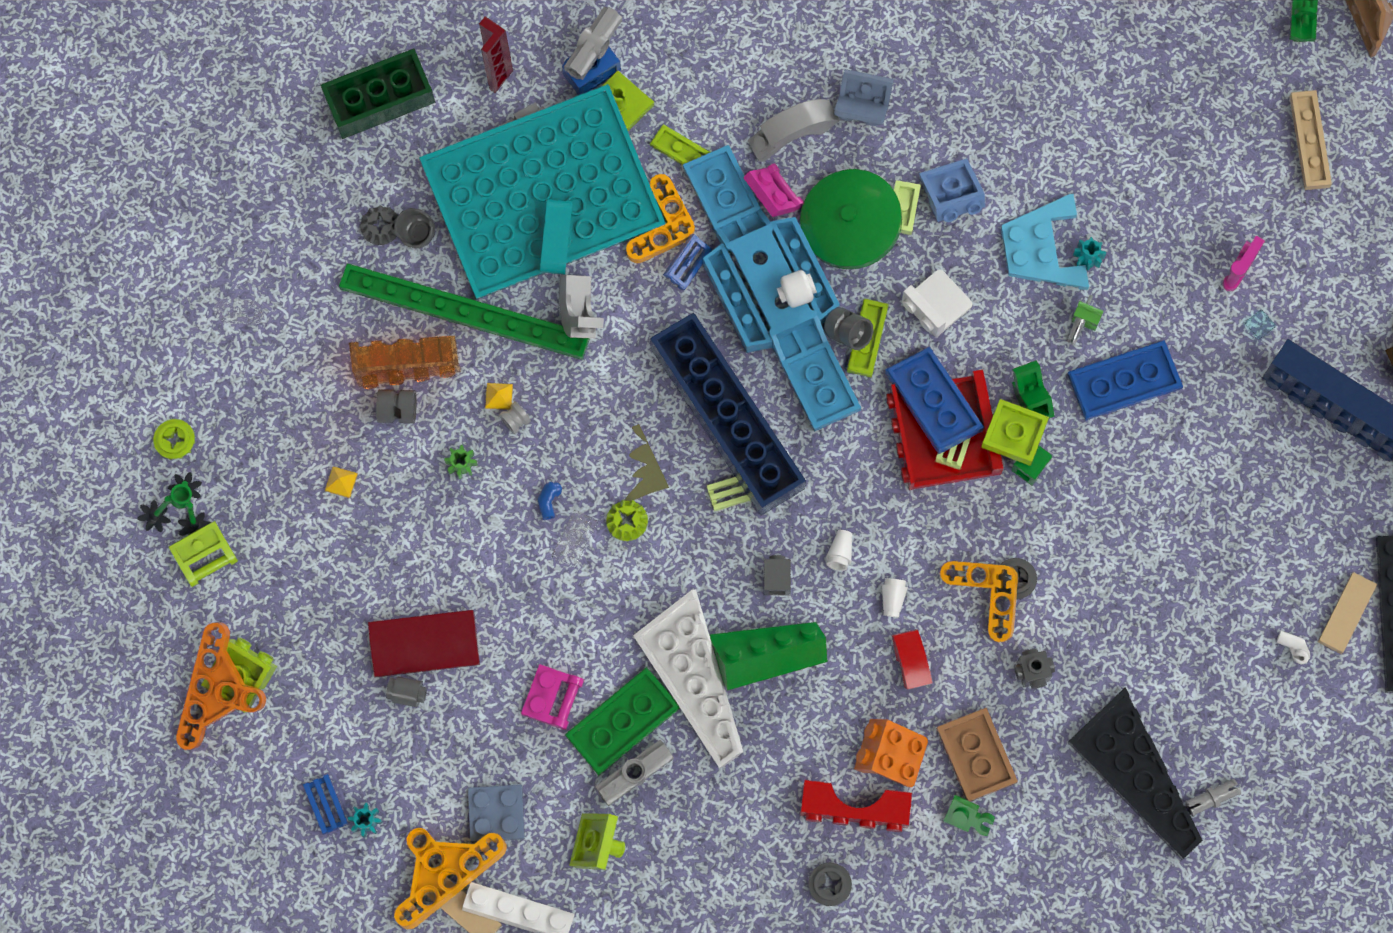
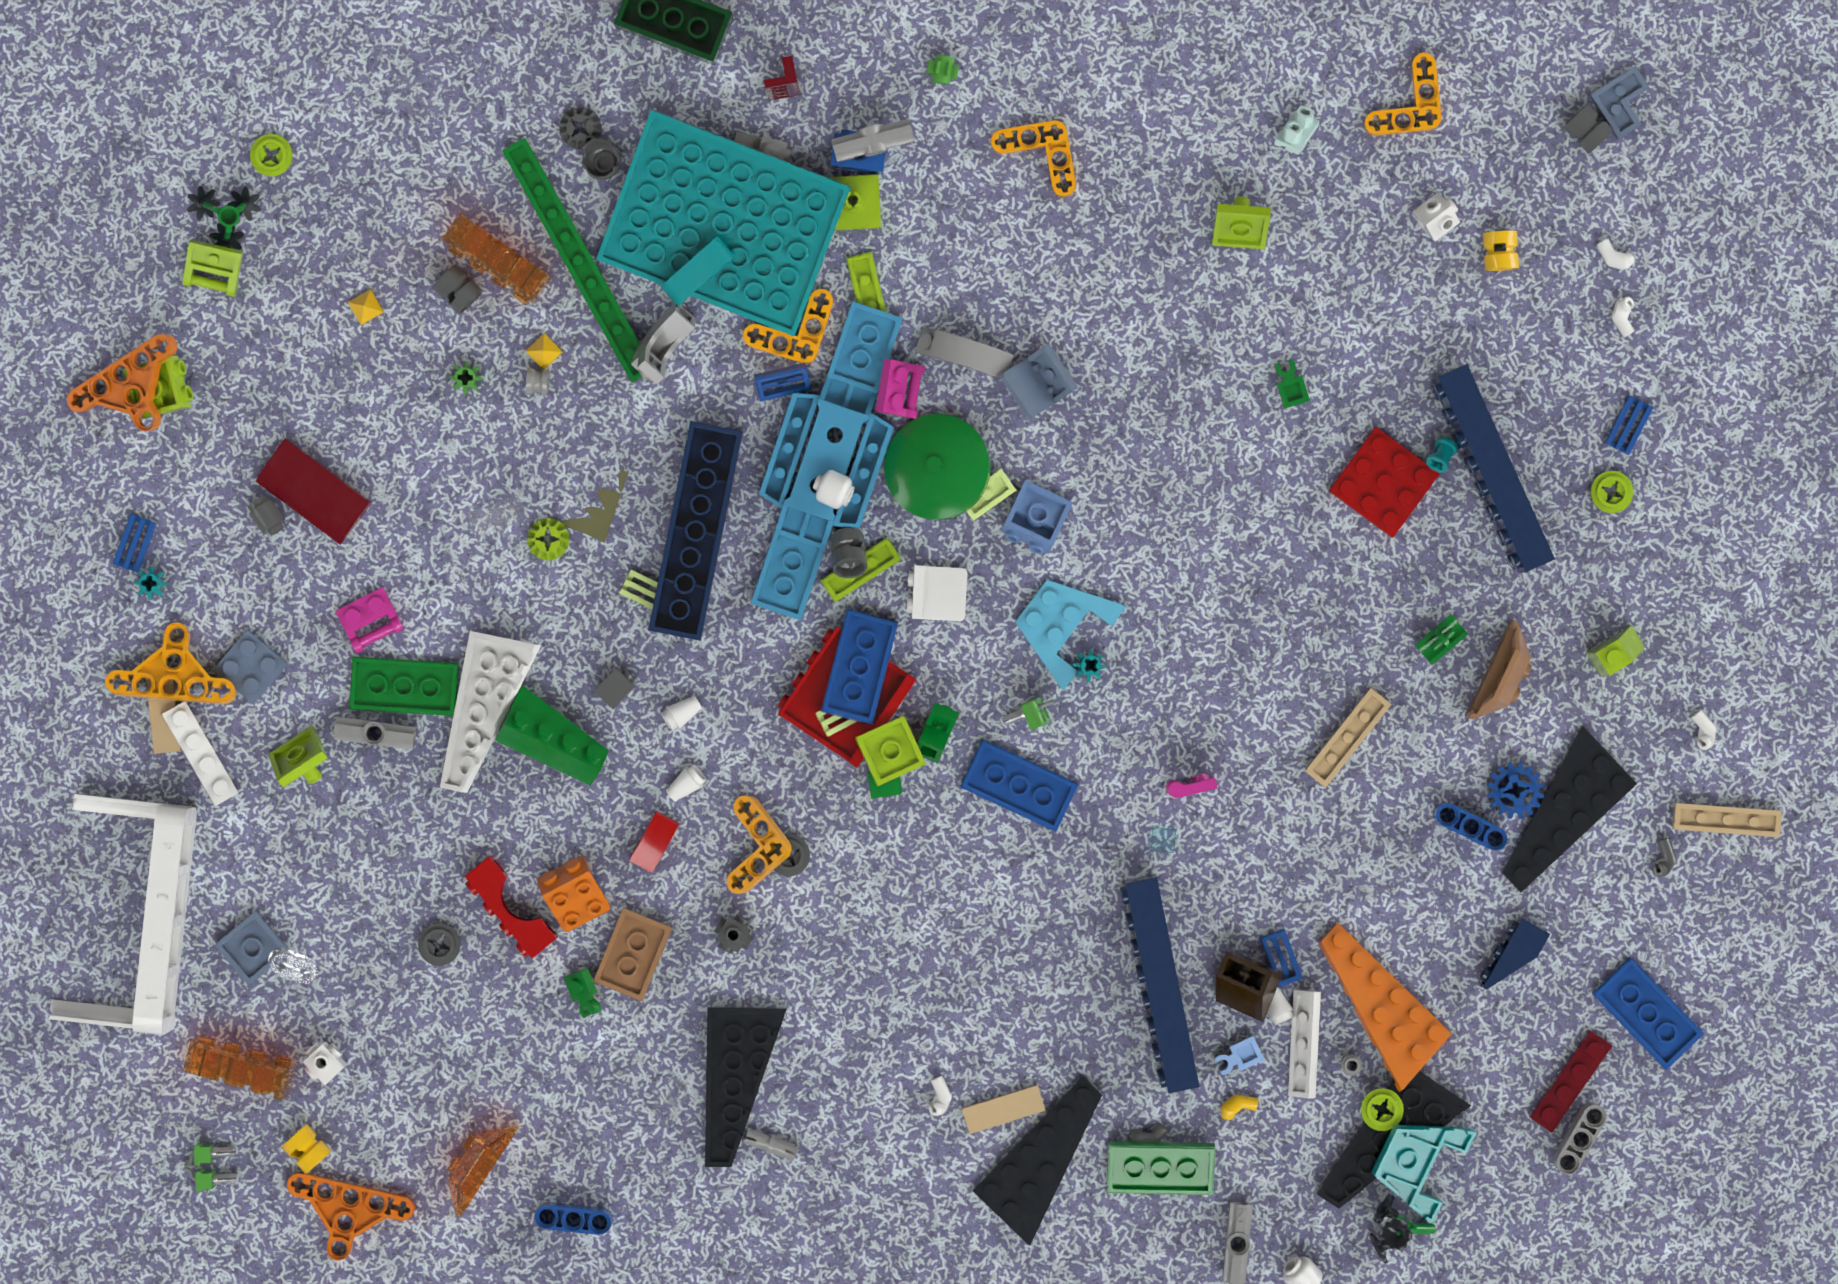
camera: 40 degrees right, 15 degrees up
(546, 497) = (504, 465): blue arm -> none

